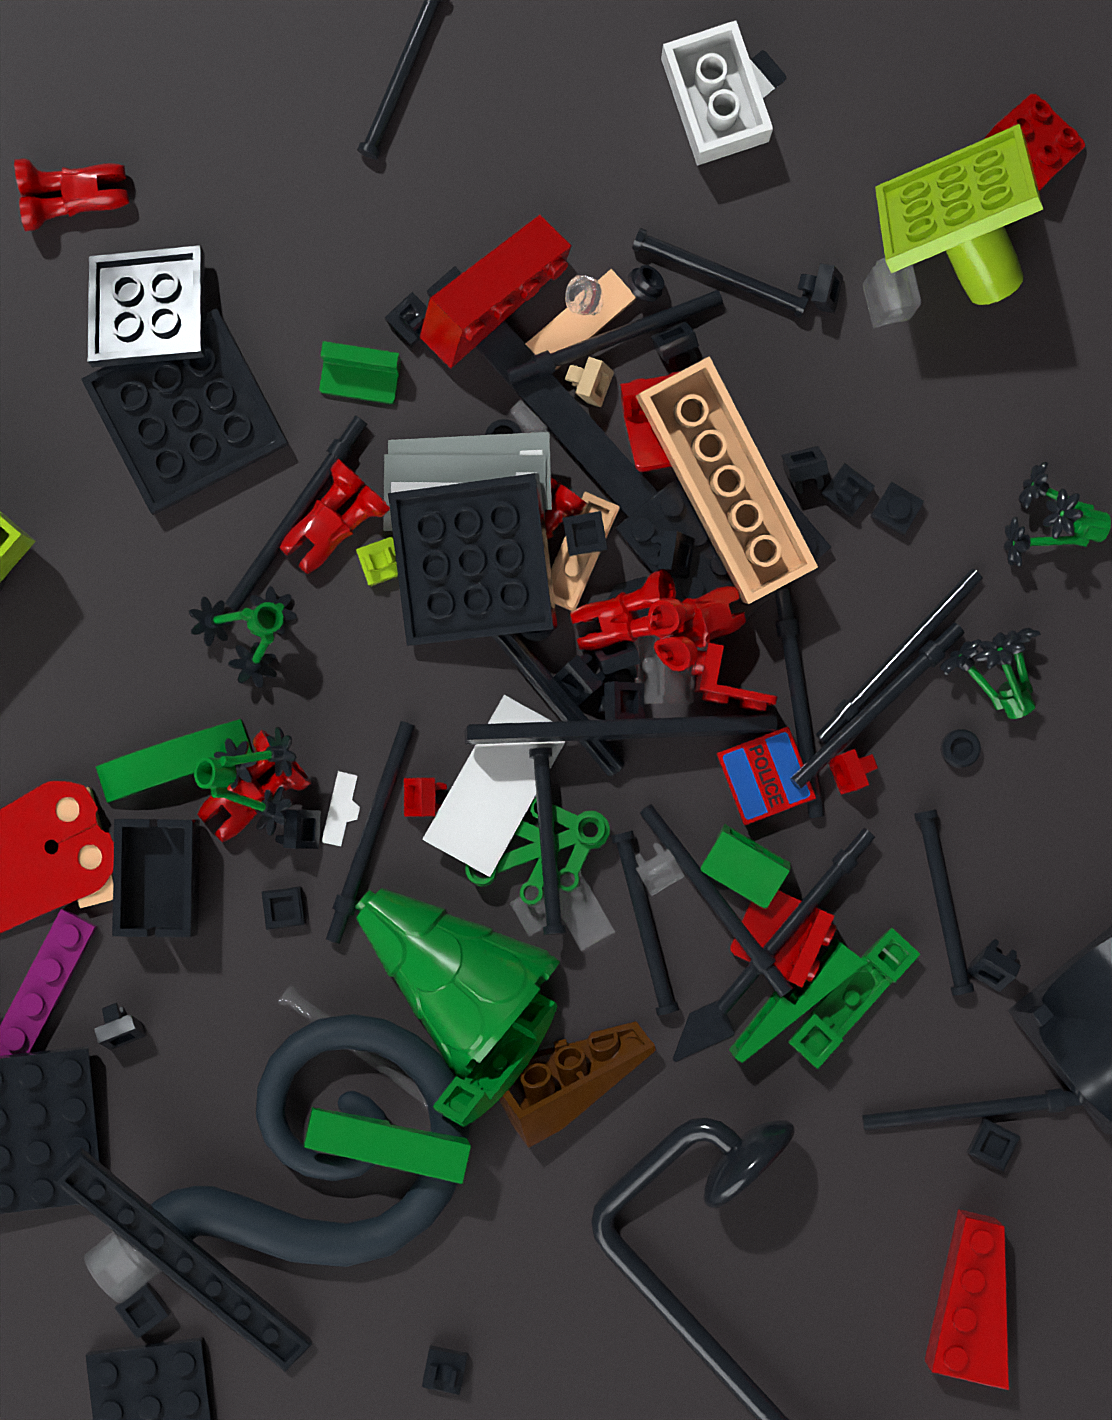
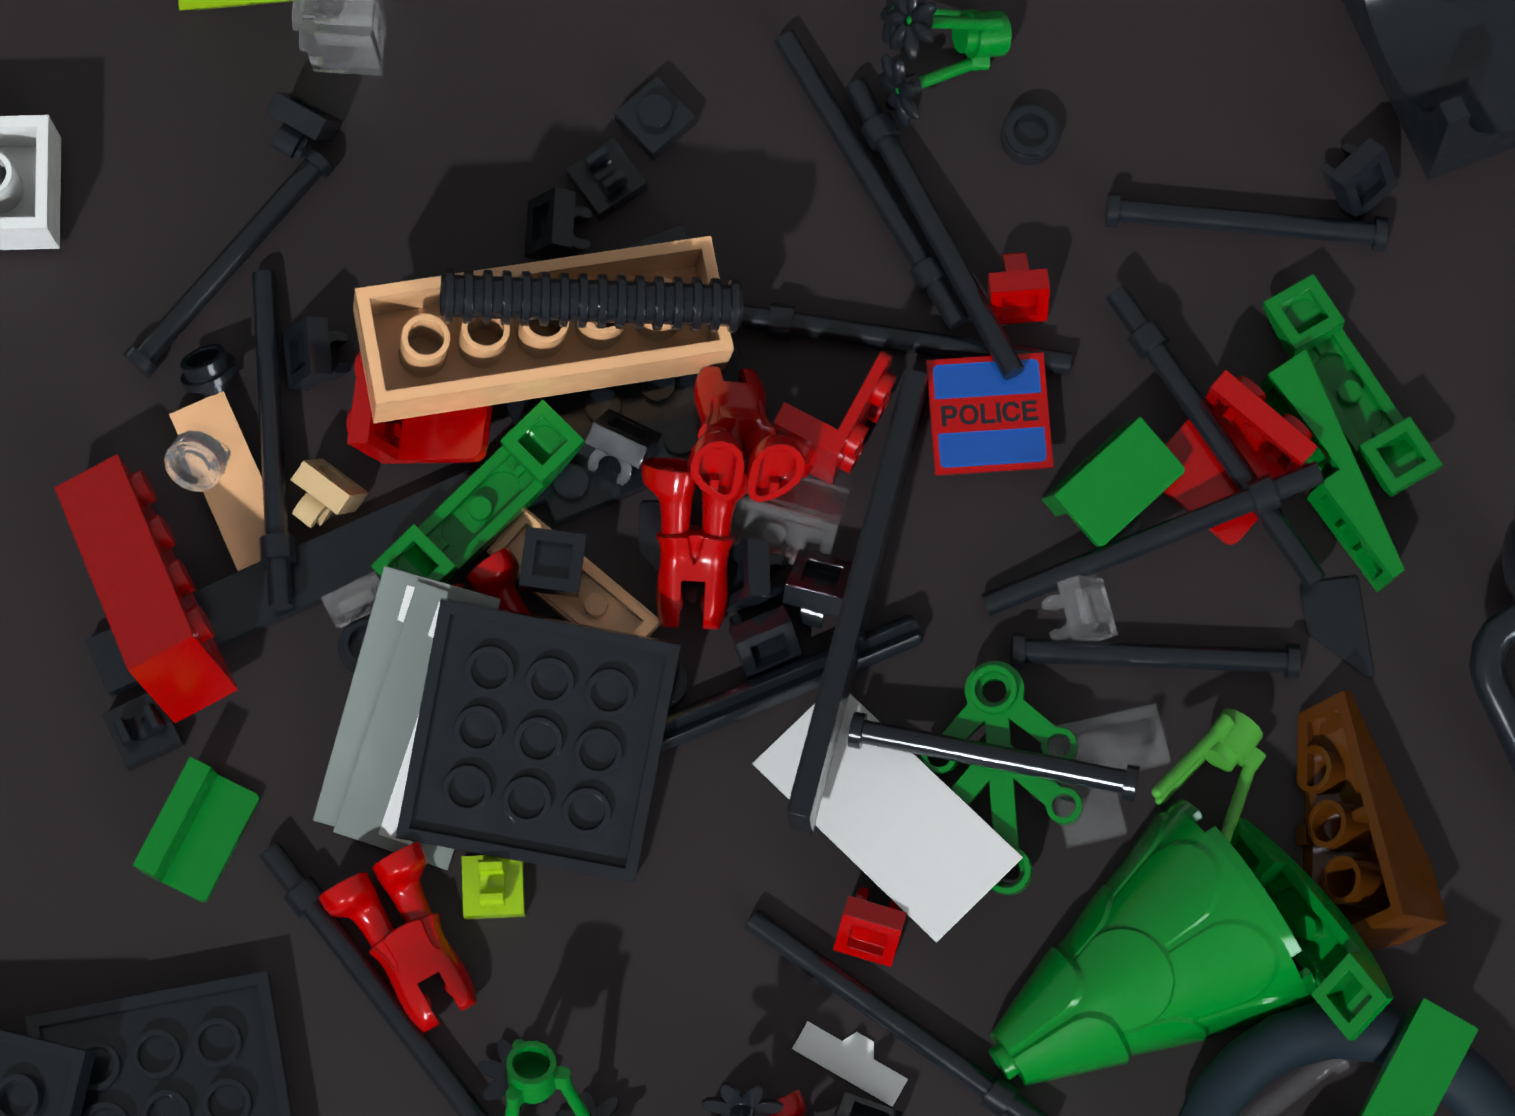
camera: 80 degrees left, 10 degrees down
(600, 982) = (1226, 745): none -> bright green plant
(611, 480) = (488, 500): none -> green slope
(747, 505) = (591, 300): none -> black piece

